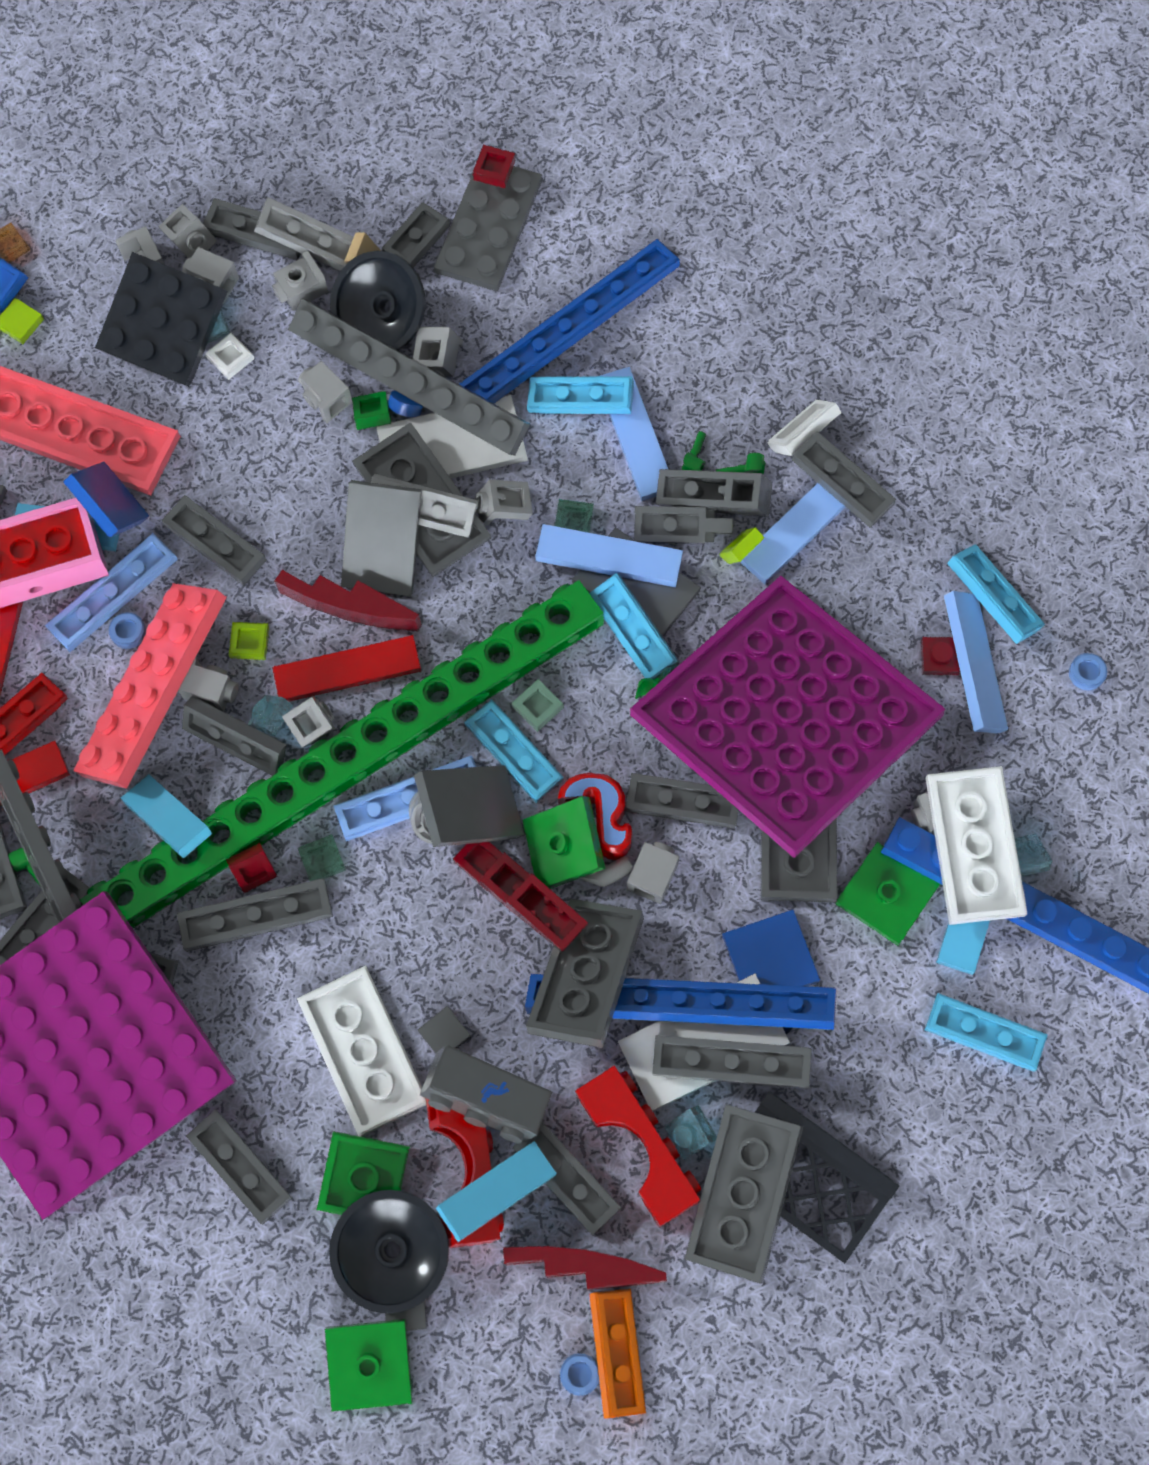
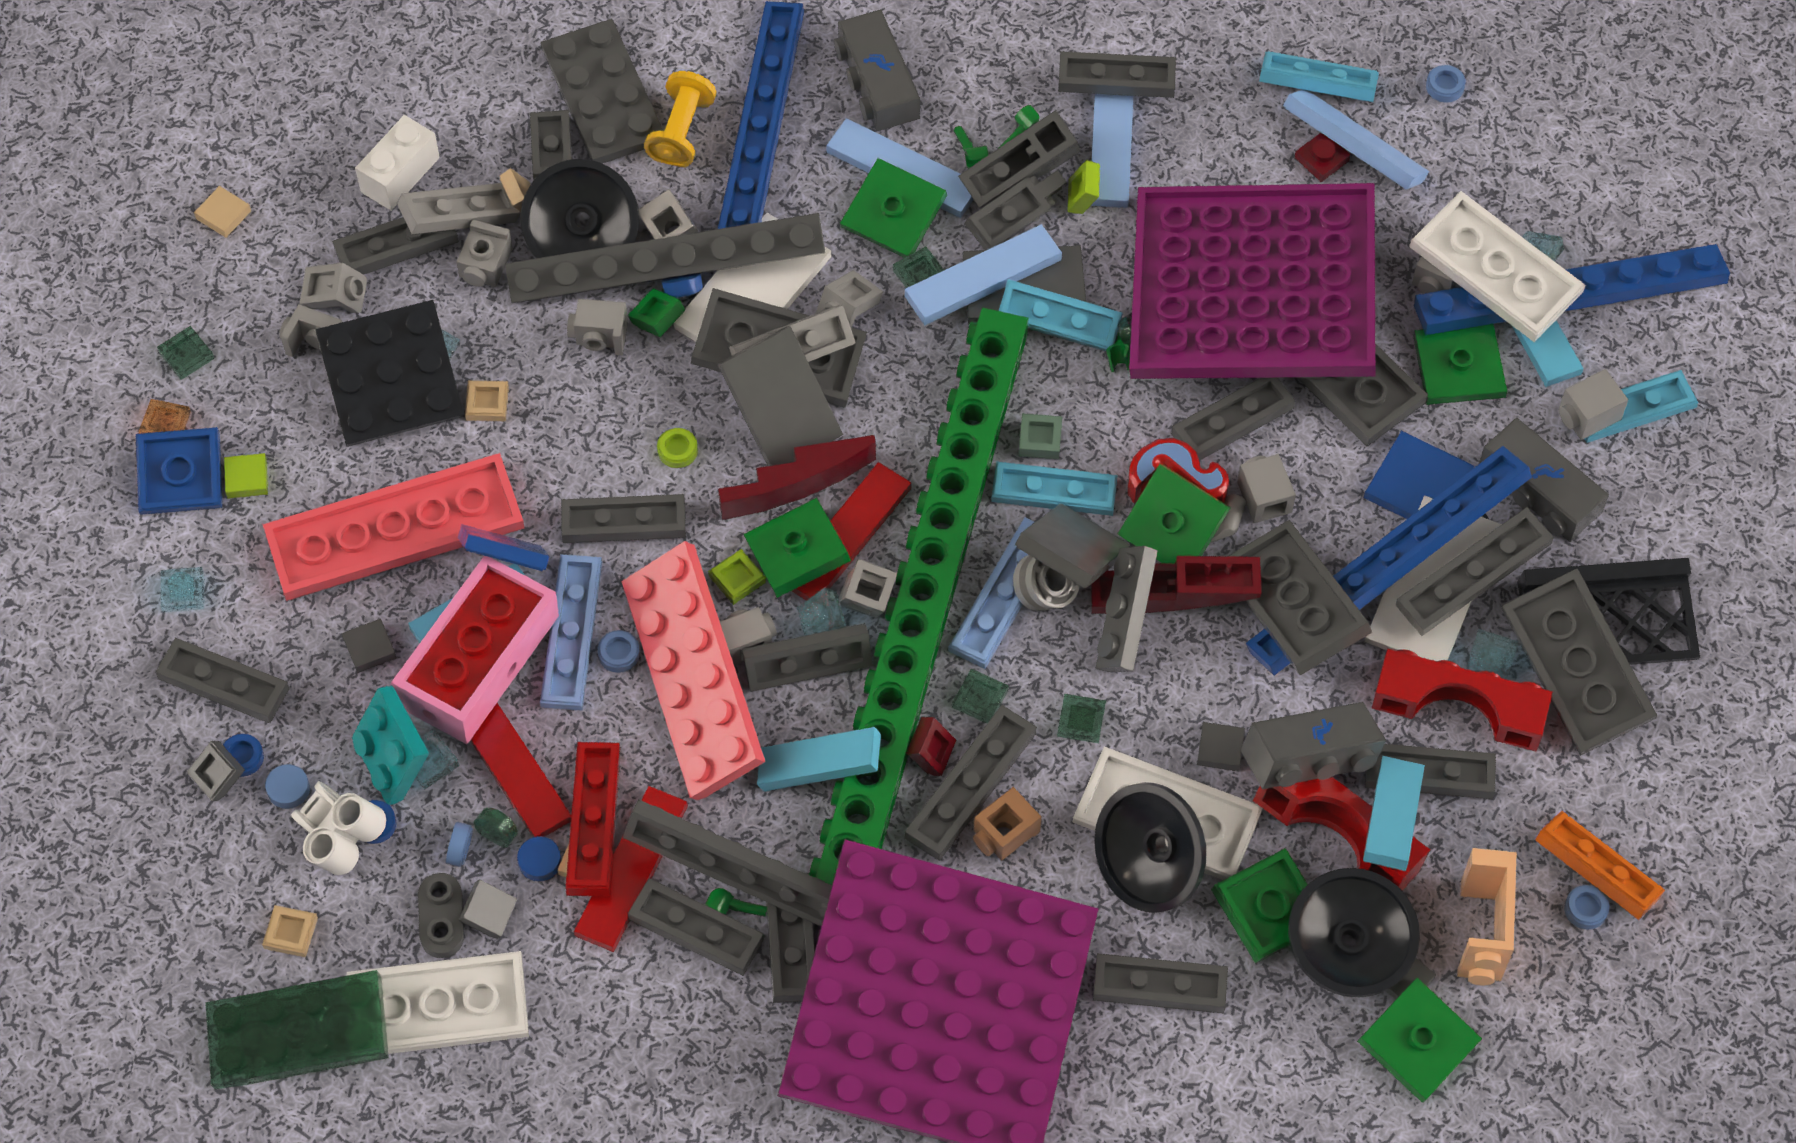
camera: 45 degrees left, 10 degrees down
(61, 206) = (185, 352): none -> clear green tile
(172, 125) = (222, 211): none -> tan tile
(210, 387) = (486, 400): none -> tan tile
(212, 269) = (391, 296): light grey brick -> none
(229, 356) = (477, 362): white tile -> none
(233, 955) = (1010, 812): none -> medium nougat brick
(297, 517) = (677, 447): none -> lime tile
(299, 653) = (797, 547): none -> green plate
(304, 173) = (397, 162): none -> white brick
(311, 1069) = (1134, 850): none -> black dish
(372, 932) = (1081, 718): none -> clear green tile
(454, 1354) = (1490, 876): none -> light nougat panel
(465, 881) = (1126, 609): none -> dark grey plate
(494, 166) = (571, 36): dark red plate -> none
(515, 281) = (689, 92): none -> yellow hose
(581, 395) = (828, 169): medium azure tile -> none
(597, 458) = (893, 208): none -> green plate
(600, 1269) = (1520, 814): dark red slope -> none
(681, 347) = (877, 71): none -> dark grey brick
(803, 426) = (1041, 60): white tile -> none
(857, 1035) = (1557, 489): none -> dark grey brick
(944, 1008) = (1592, 404): none -> light grey brick

